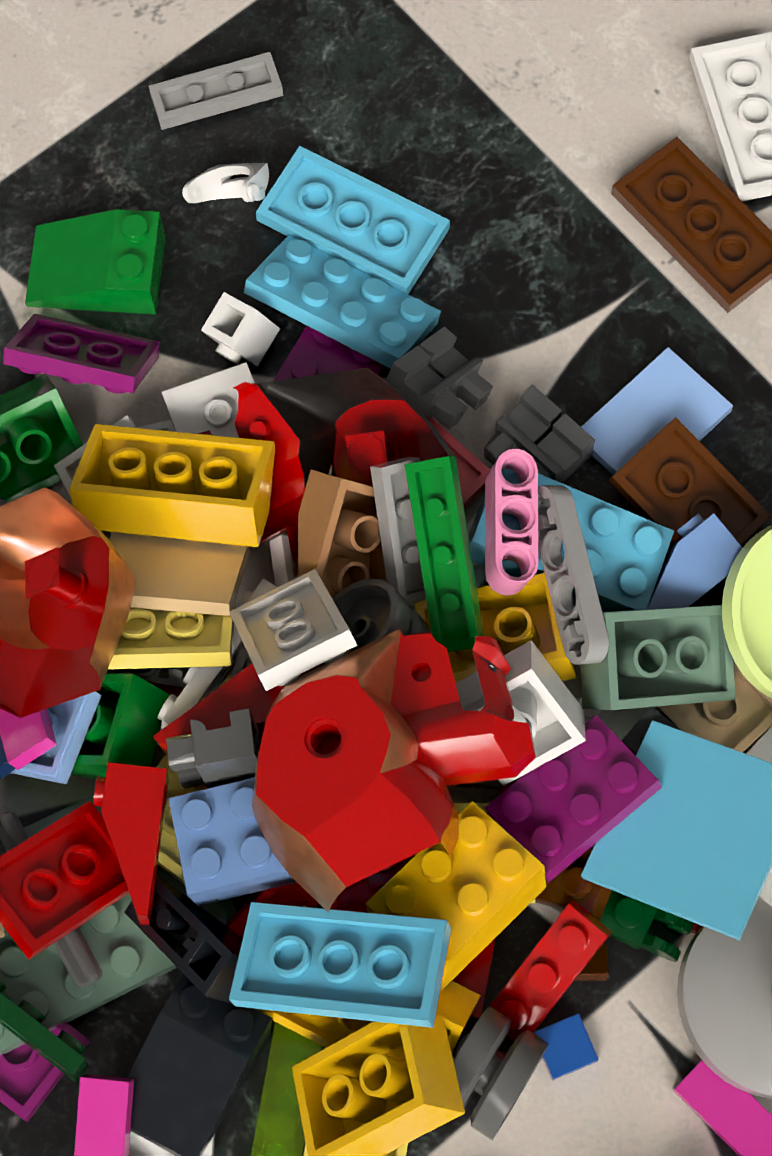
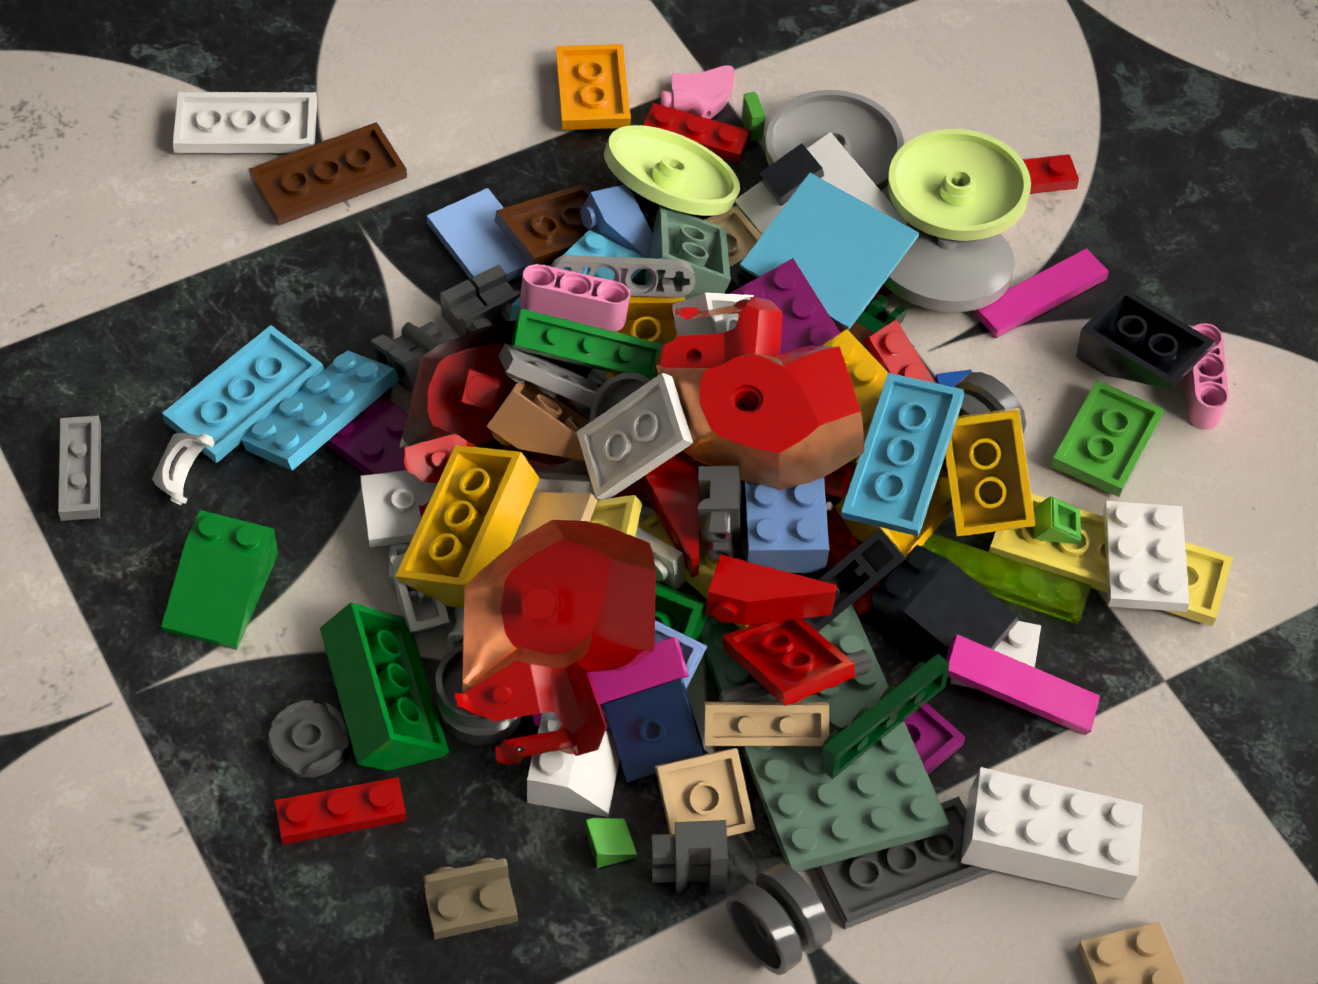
camera: 85 degrees left, 15 degrees down
(81, 353) = (311, 595): magenta plate -> none
(239, 330) = (327, 479): white brick -> none

